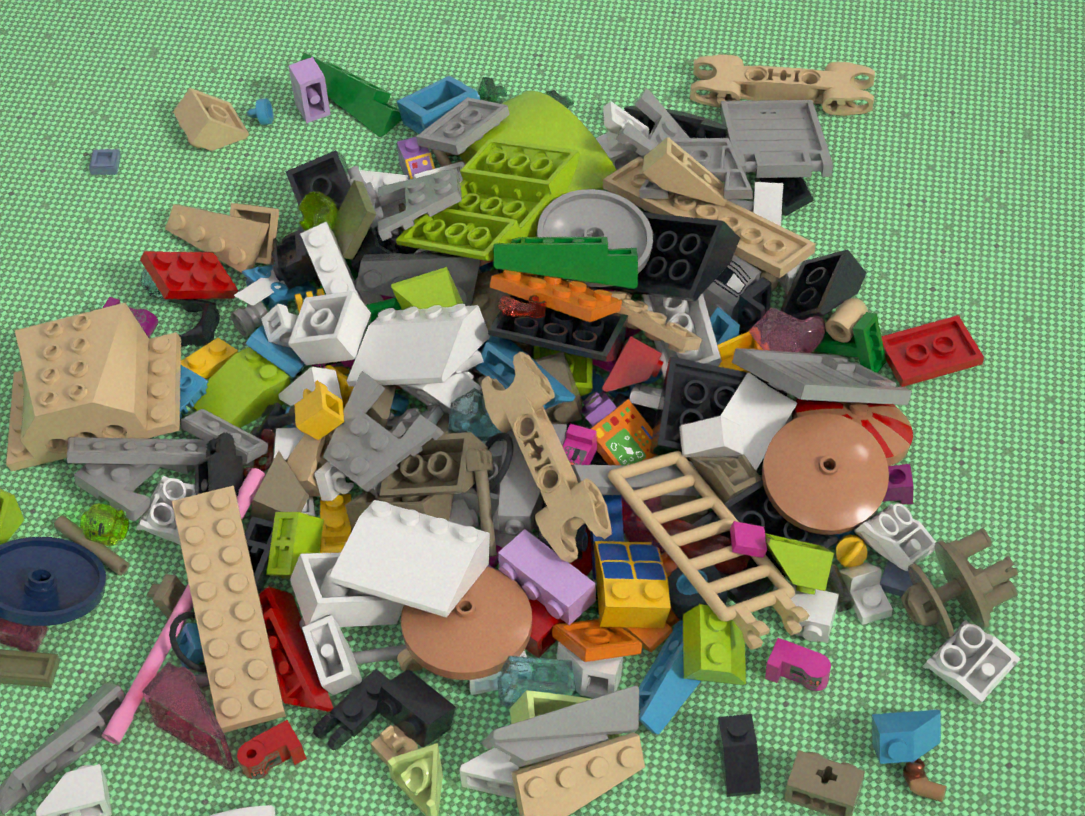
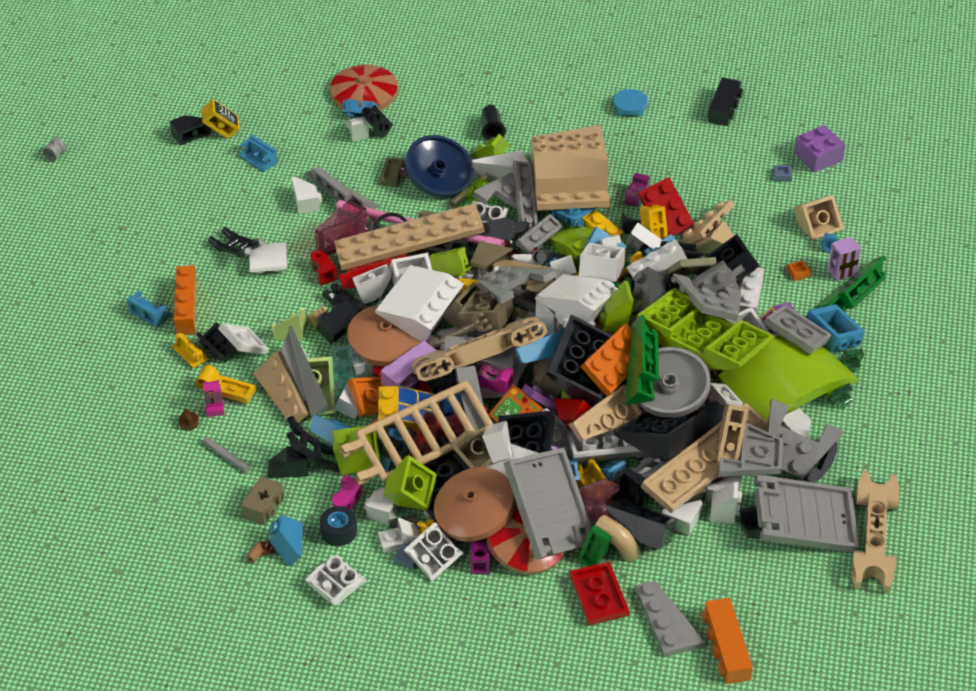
camera: 90 degrees right, 5 degrees down
(44, 491) = (497, 165): none -> white slope
(66, 115) = (819, 148): none -> medium lavender brick
(220, 287) = (654, 220): none -> yellow hinge
(310, 148) = (798, 270): none -> orange tile
(318, 209) = (705, 252): clear neon green hair -> none
(318, 411) = (532, 257): yellow brick -> none
(516, 309) = (595, 340): clear red arm -> none
(614, 121) = (800, 415): white slope -> none
(723, 709) = (301, 446): none -> black piece
(748, 539) = (419, 451): dark pink tile -> none
(861, 670) = (338, 526): none -> black wheel
(961, 283) = (668, 624): none -> light grey wing
(974, 588) = (381, 566): dark tan piece -> none
(983, 220) = (727, 641): none -> orange brick

